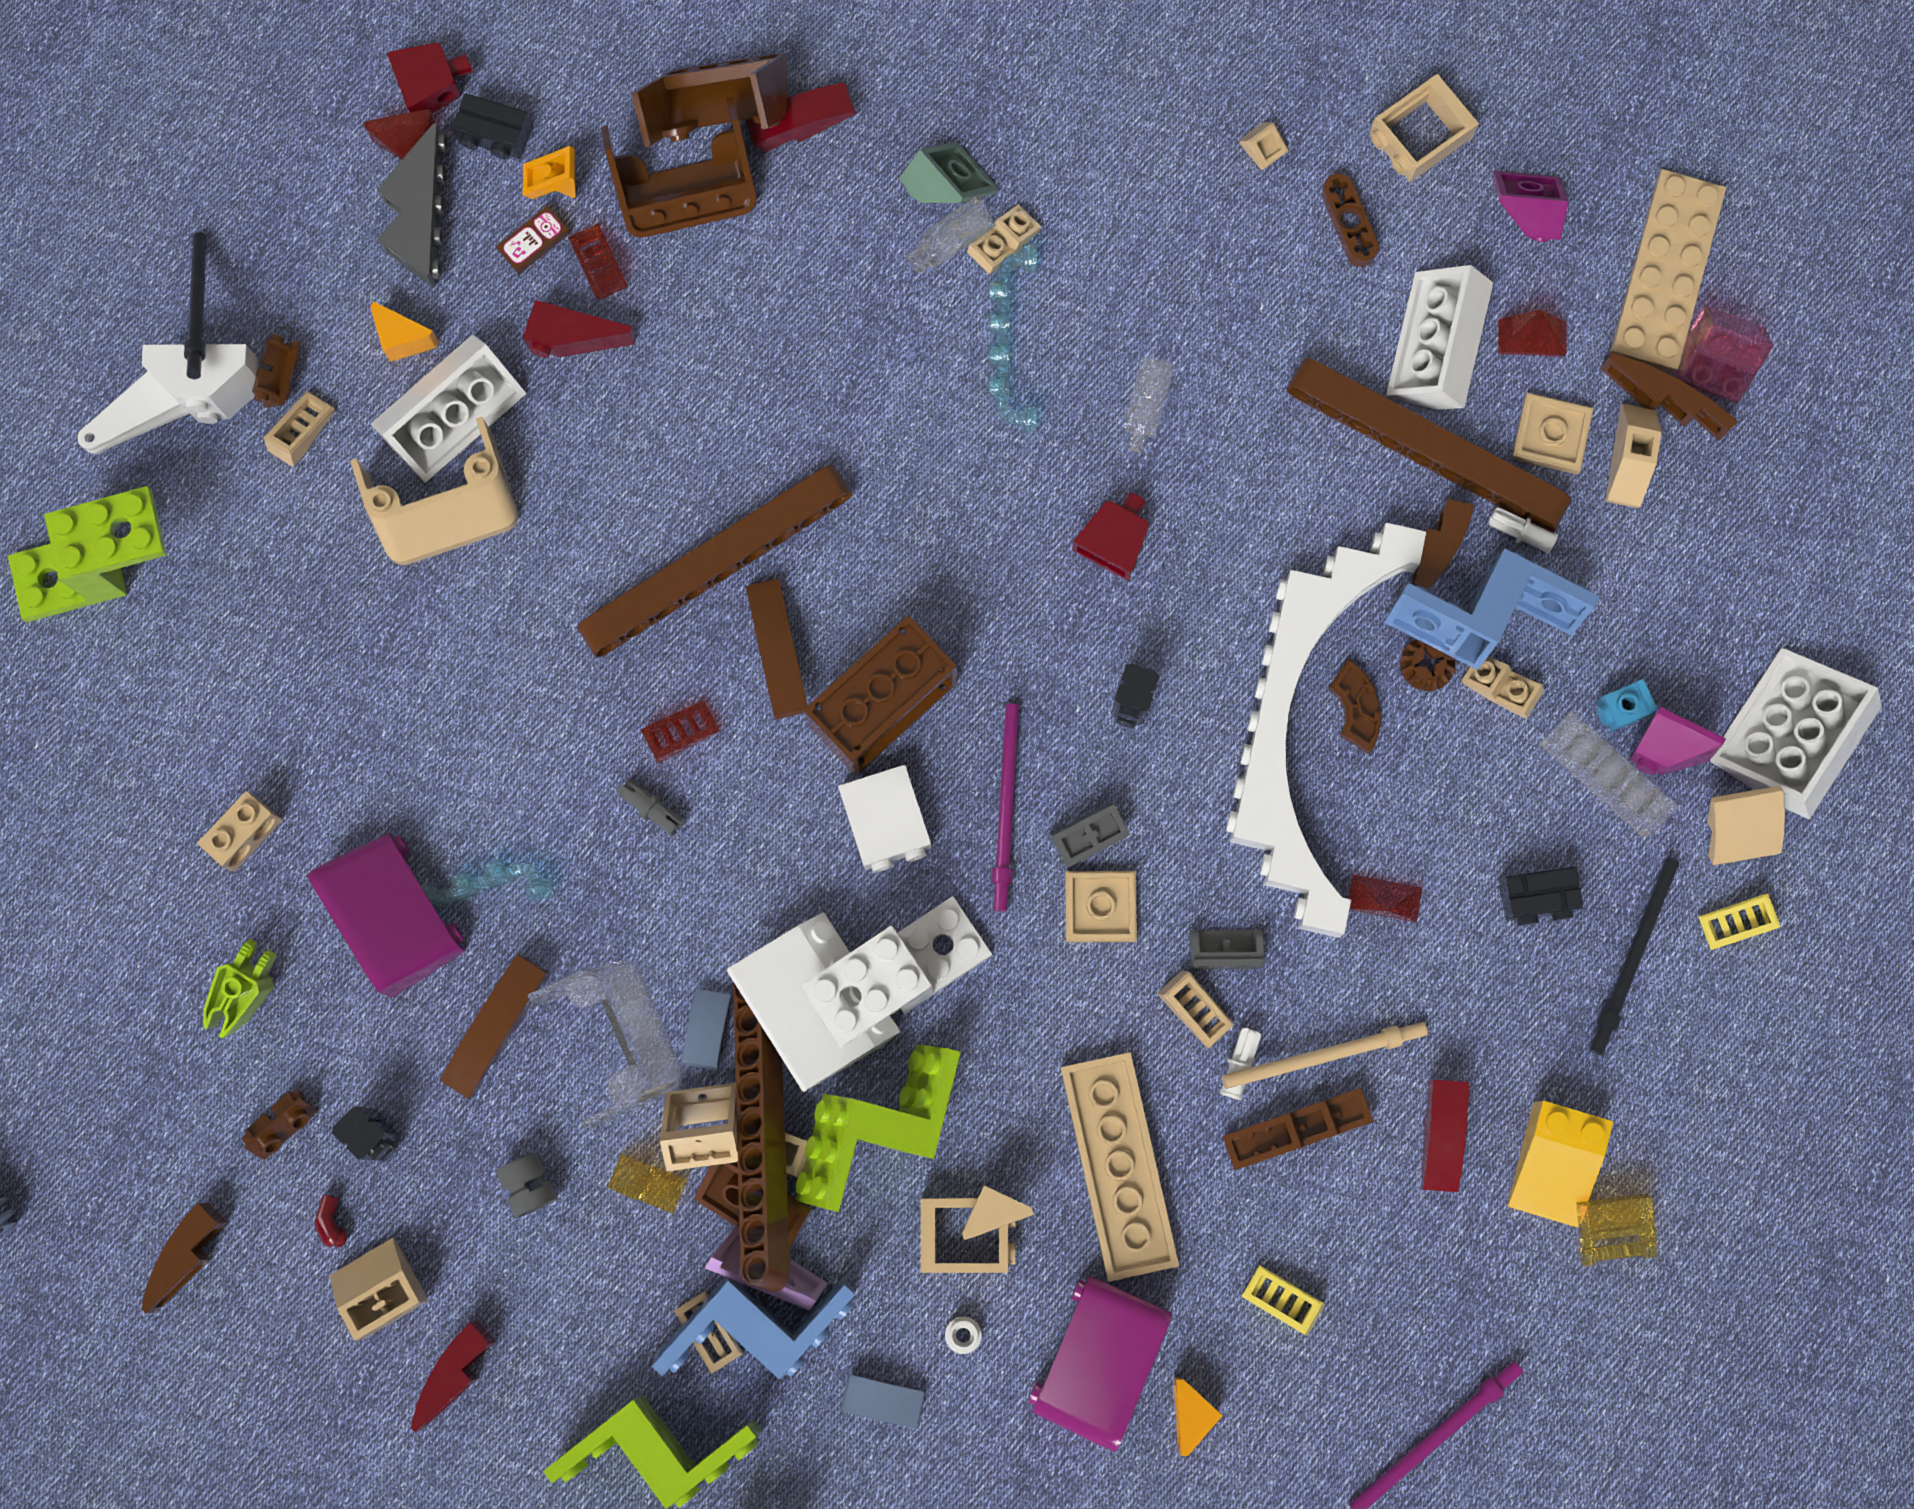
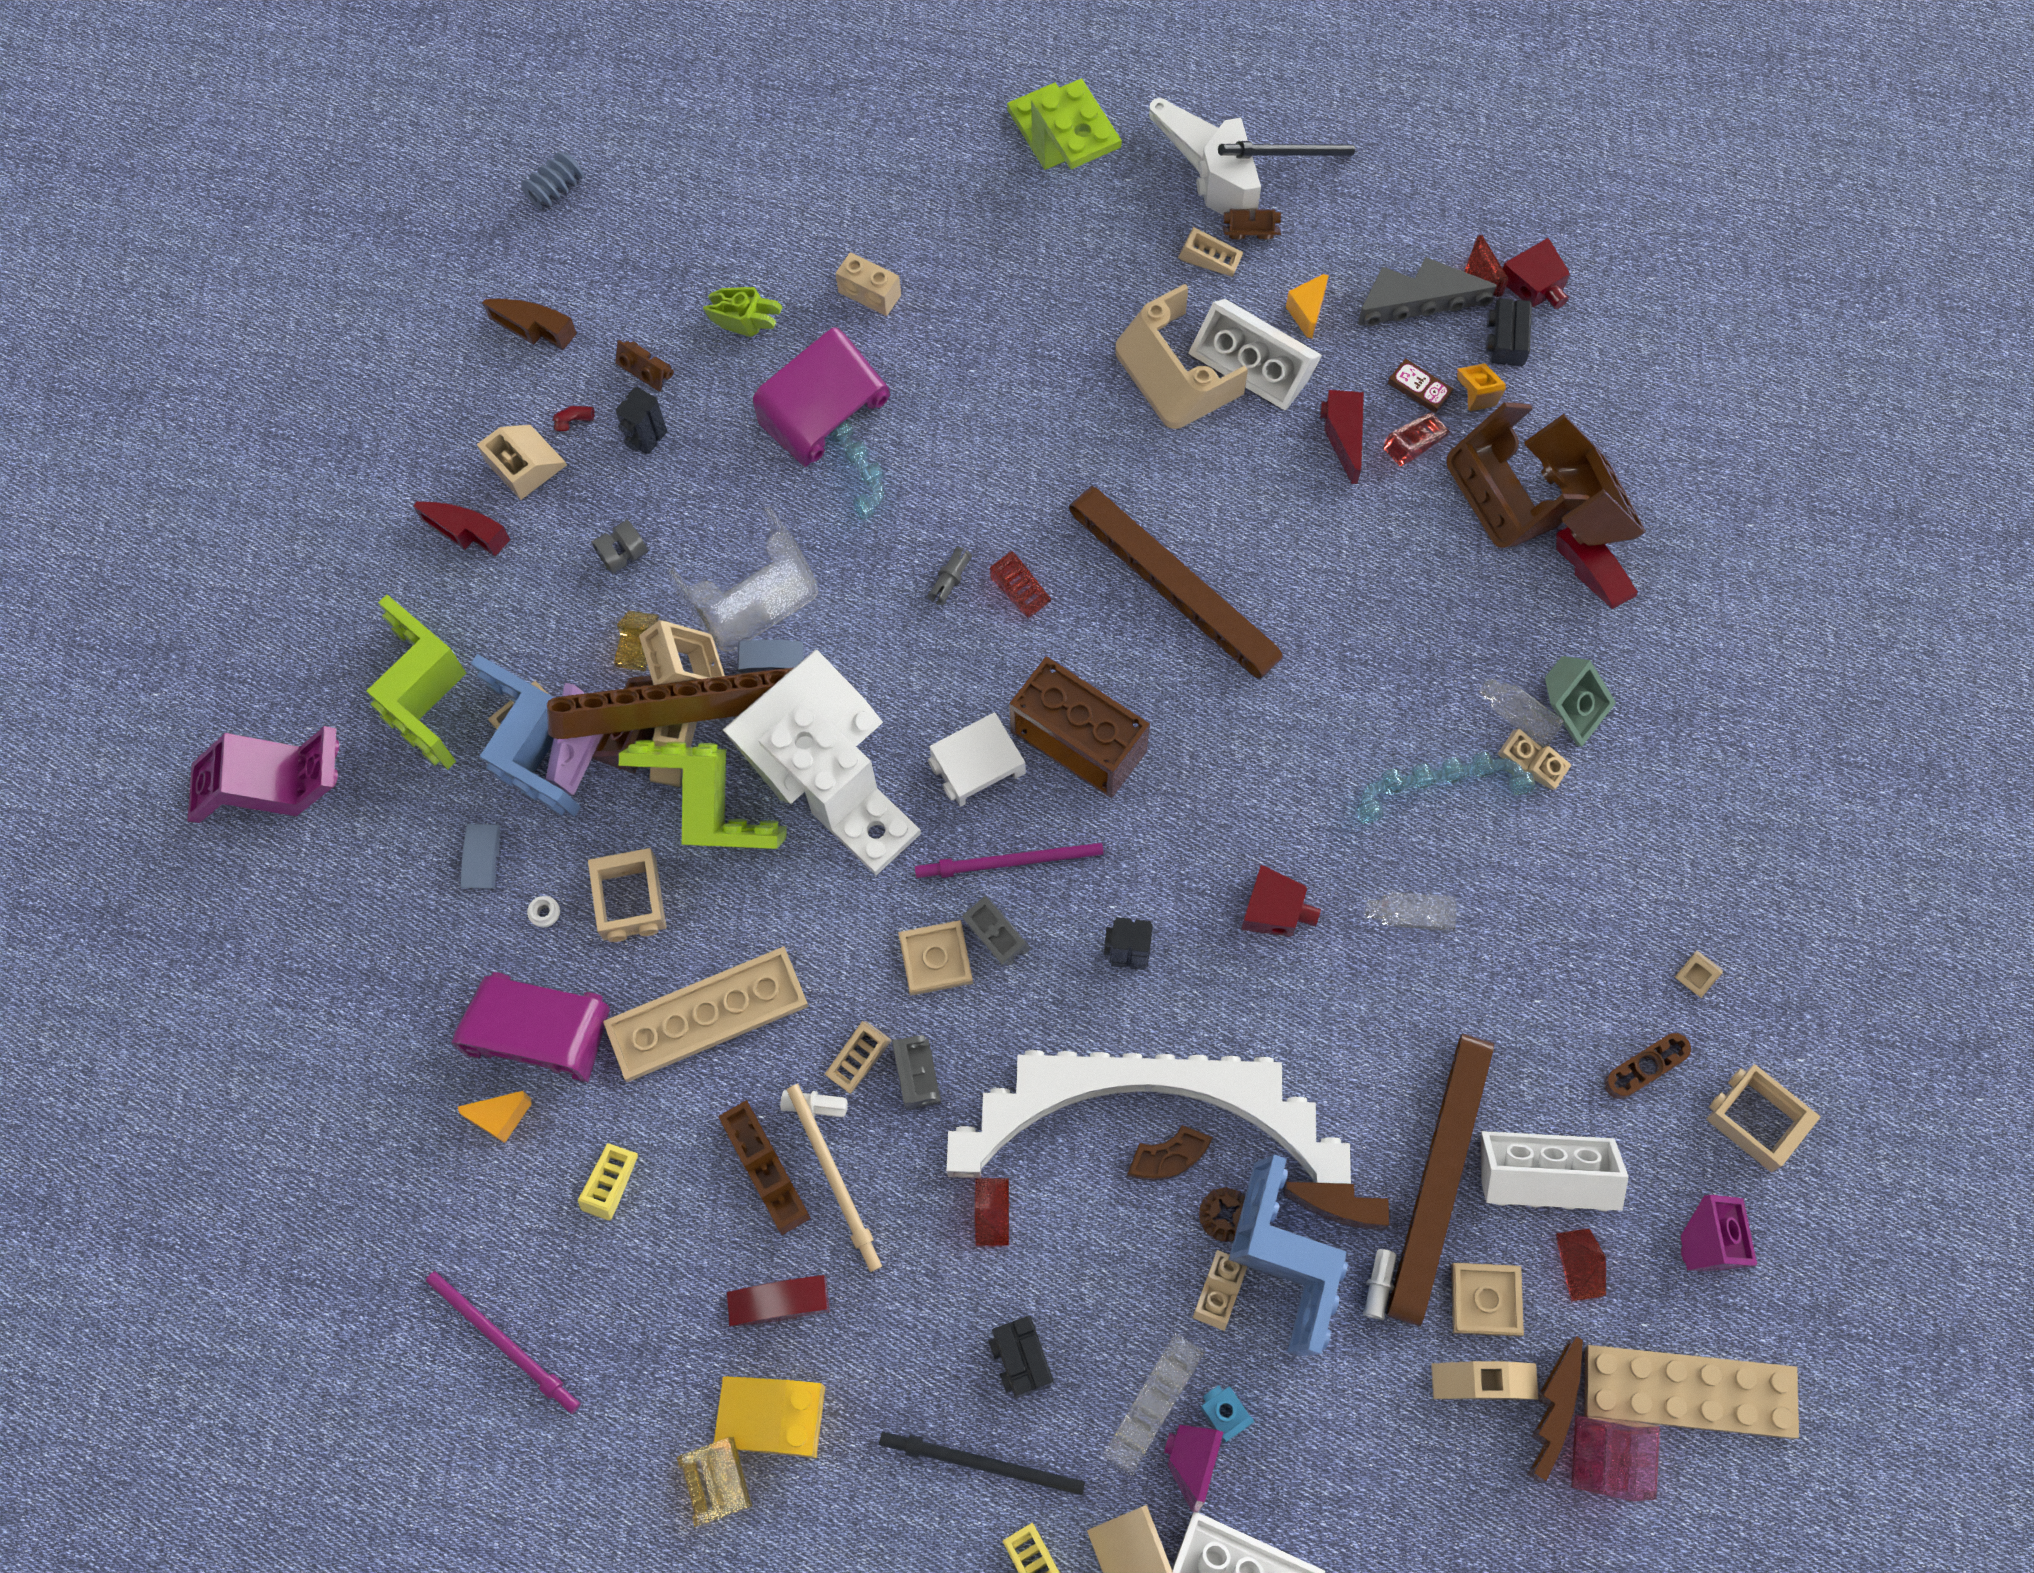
camera: 80 degrees right, 10 degrees down
(493, 1026) = (744, 496): reddish brown slope -> none
(777, 648) = (1109, 642): reddish brown slope -> none
(993, 1212) = (645, 902): tan slope -> none

